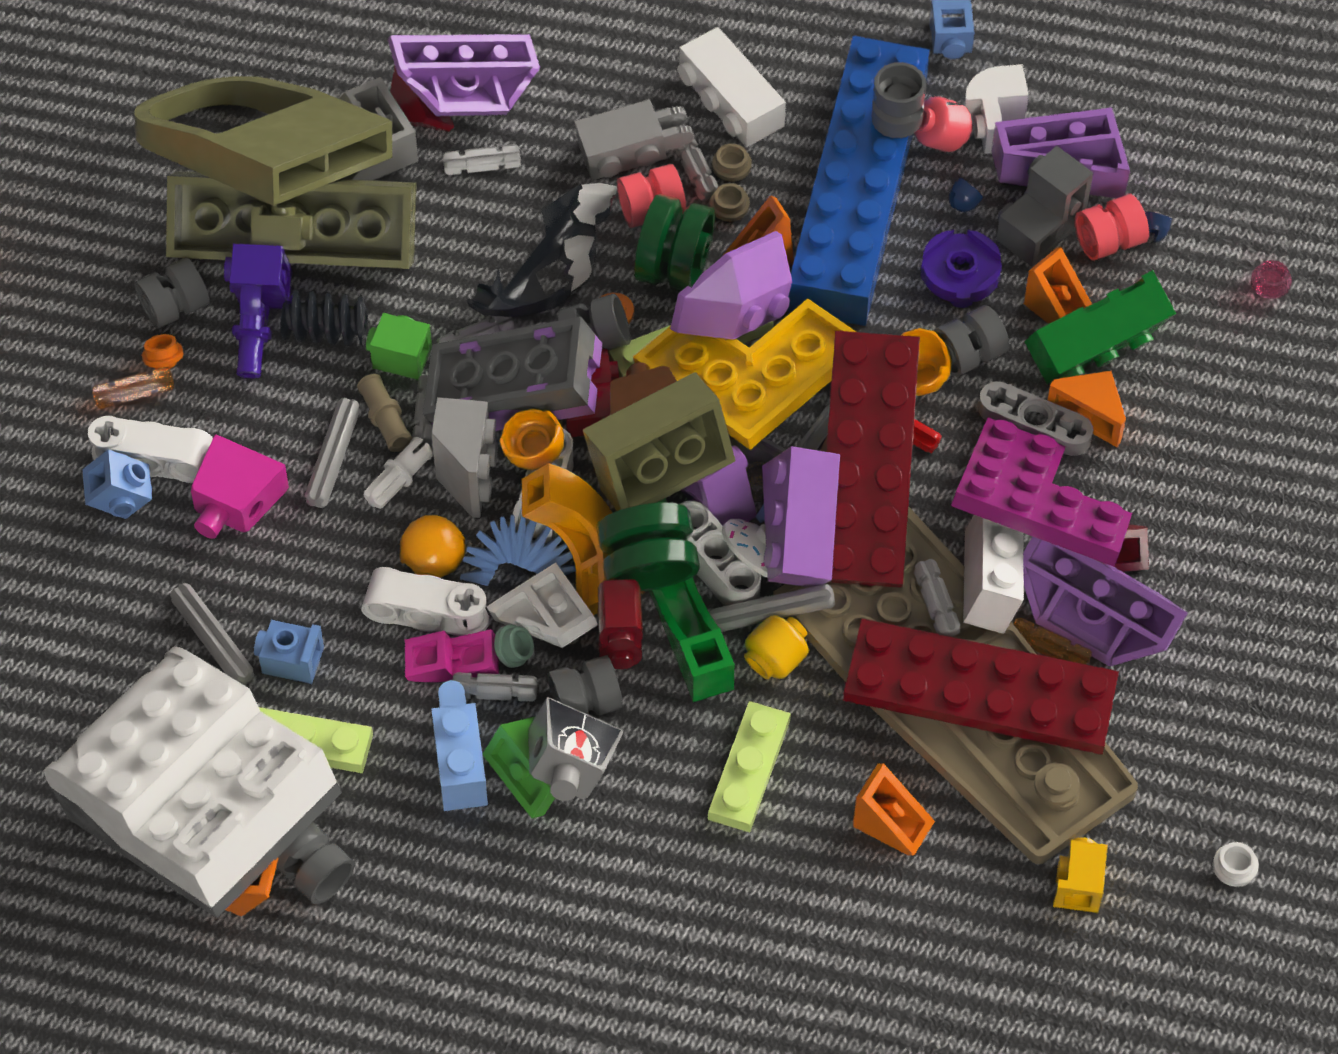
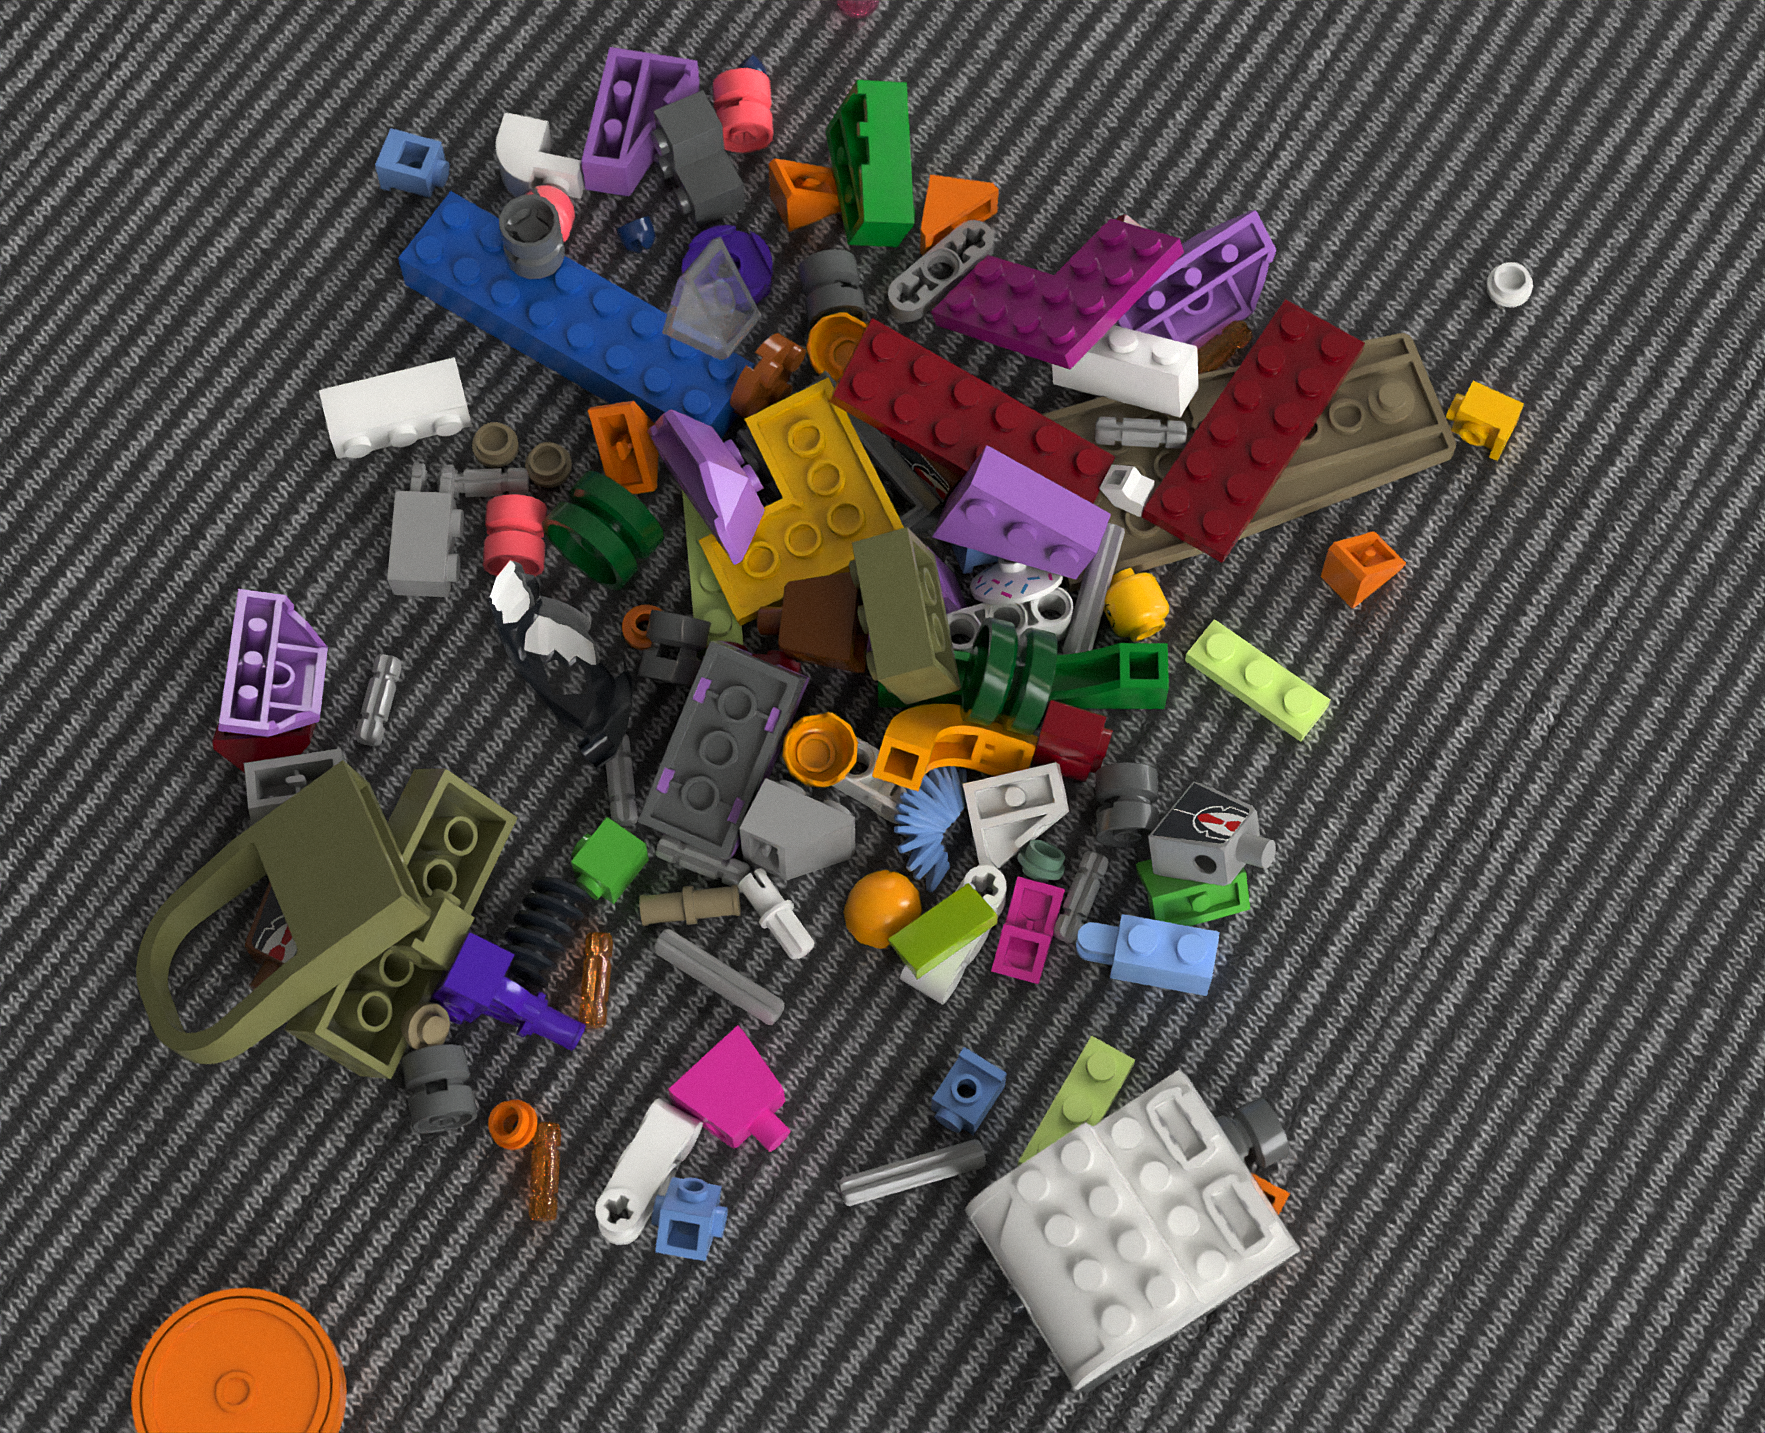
camera: 70 degrees left, 10 degrees up
(210, 260) = (425, 1025): none -> dark tan plate
(300, 371) = (596, 980): none -> clear orange axle
(412, 579) = (943, 930): none -> lime slope
(866, 308) = (769, 378): none -> dark orange plate
(876, 600) = (1127, 488): none -> white piece
(904, 244) = (711, 304): none -> clear slope

